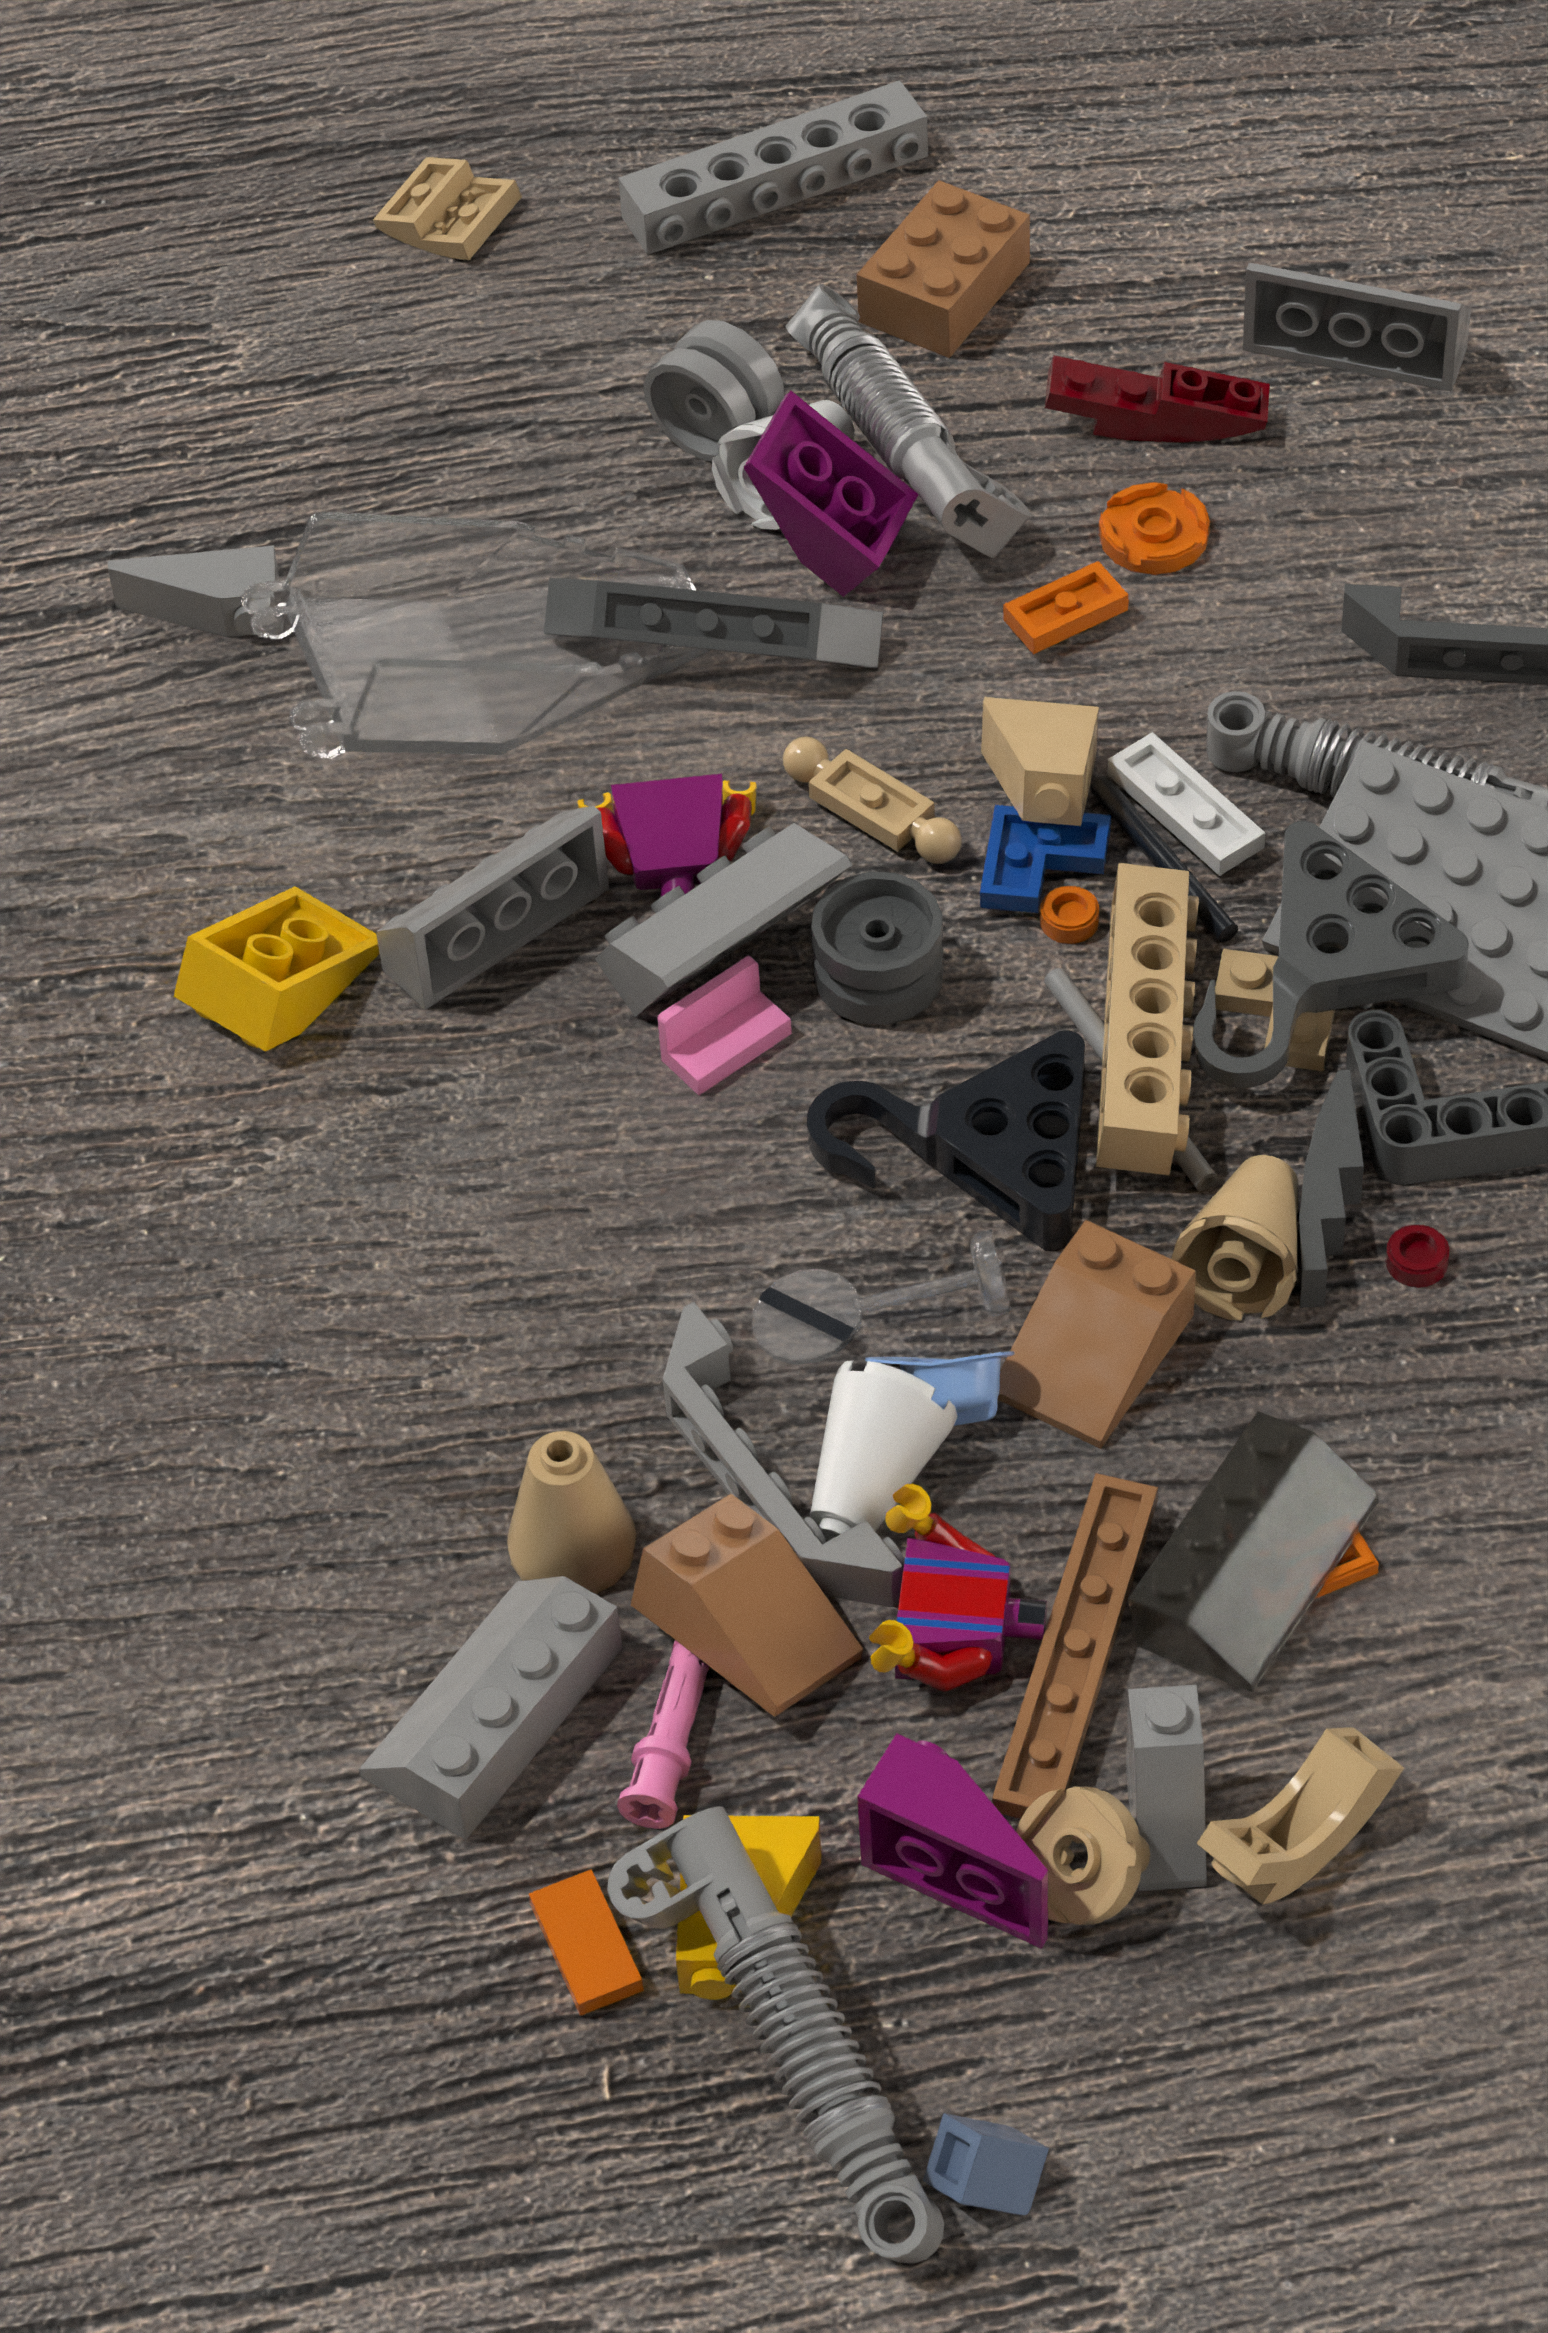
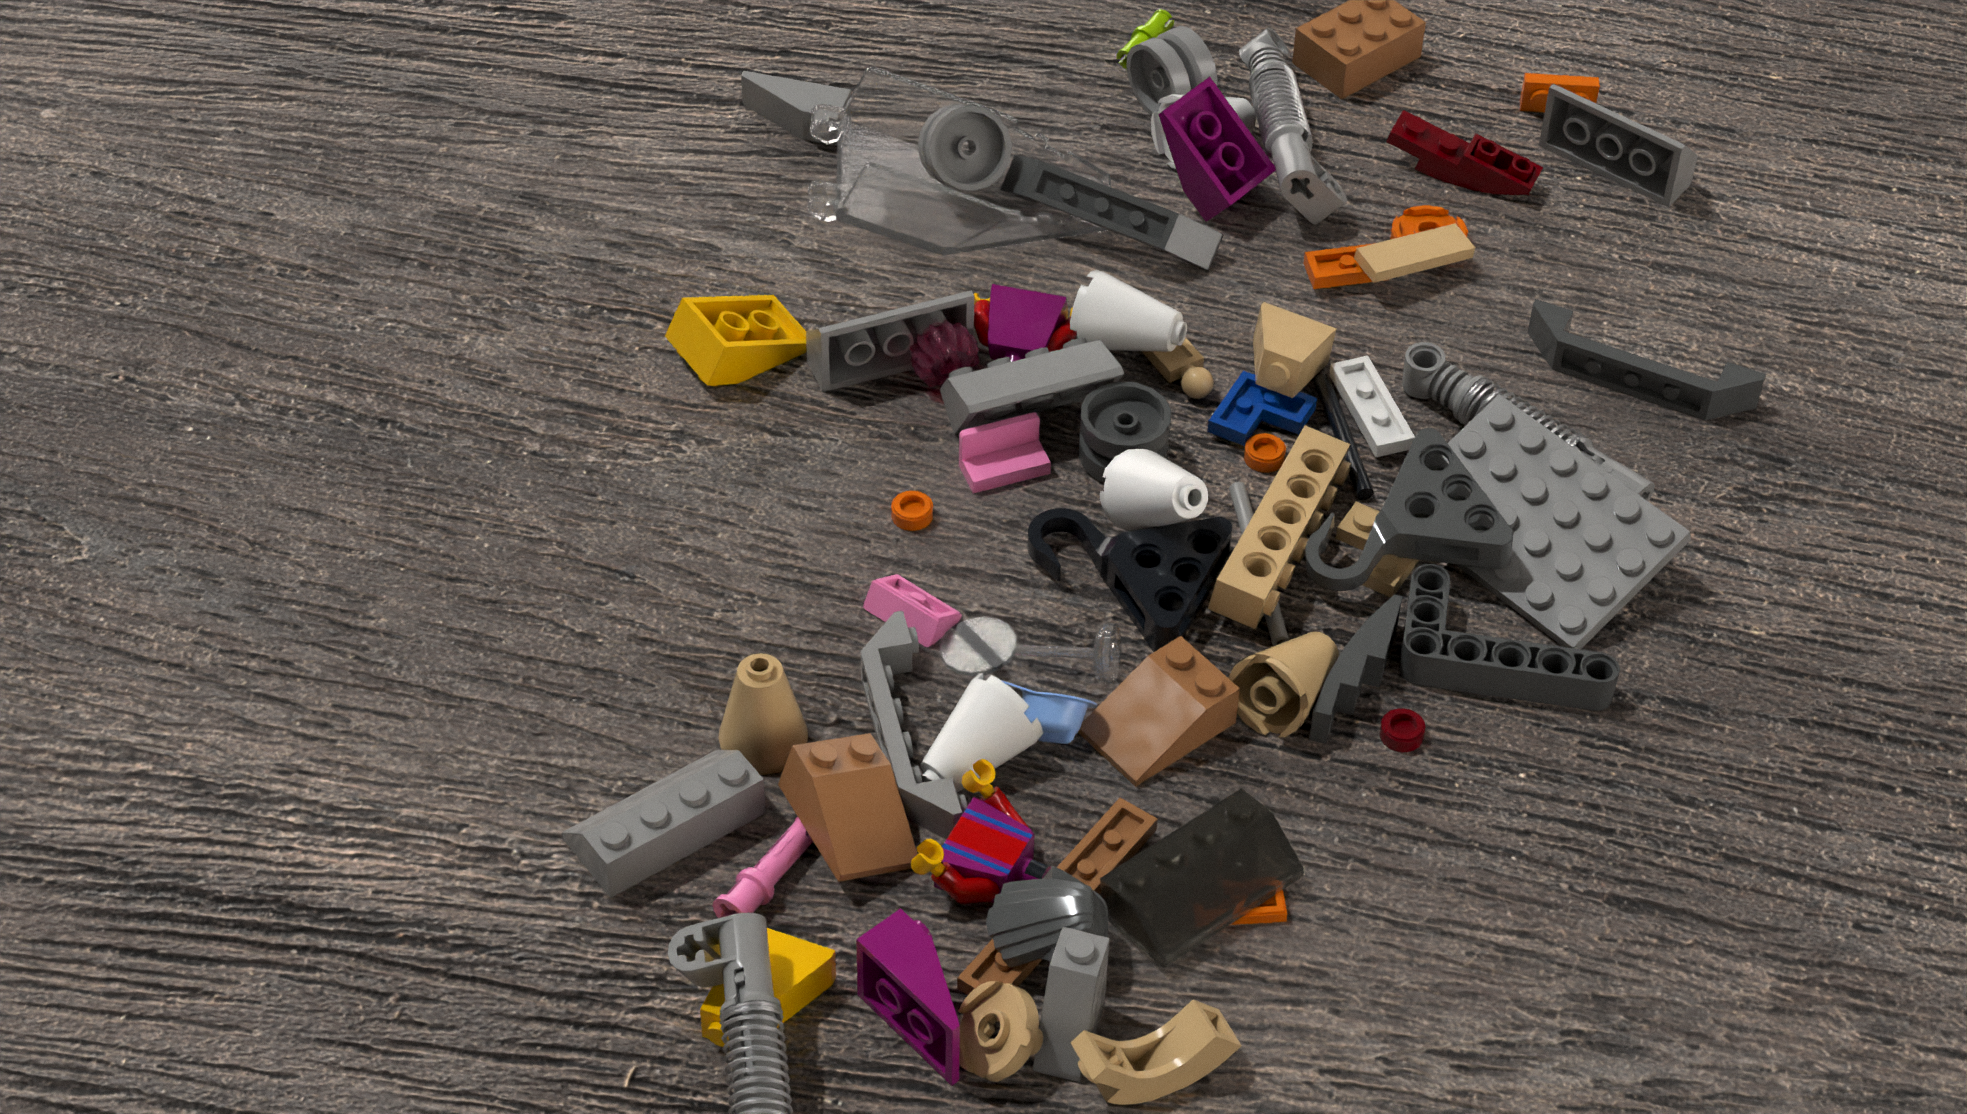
camera: 15 degrees right, 5 degrees down
(481, 589) = (942, 143): none -> light grey wheel
(580, 906) = (942, 352): none -> clear pink gear
(586, 1942) = (653, 986): orange tile -> none
(629, 1147) = (912, 510): none -> orange tile
(645, 344) = (1152, 28): none -> lime pin
(666, 1282) = (921, 610): none -> bright pink slope
(813, 779) = (1125, 317): none -> white cone
(959, 1024) = (1150, 491): none -> white cone
(1078, 1678) = (1032, 914): none -> dark grey hair
(1153, 563) = (1414, 253): none -> tan tile
(1221, 270) = (1536, 89): none -> orange plate

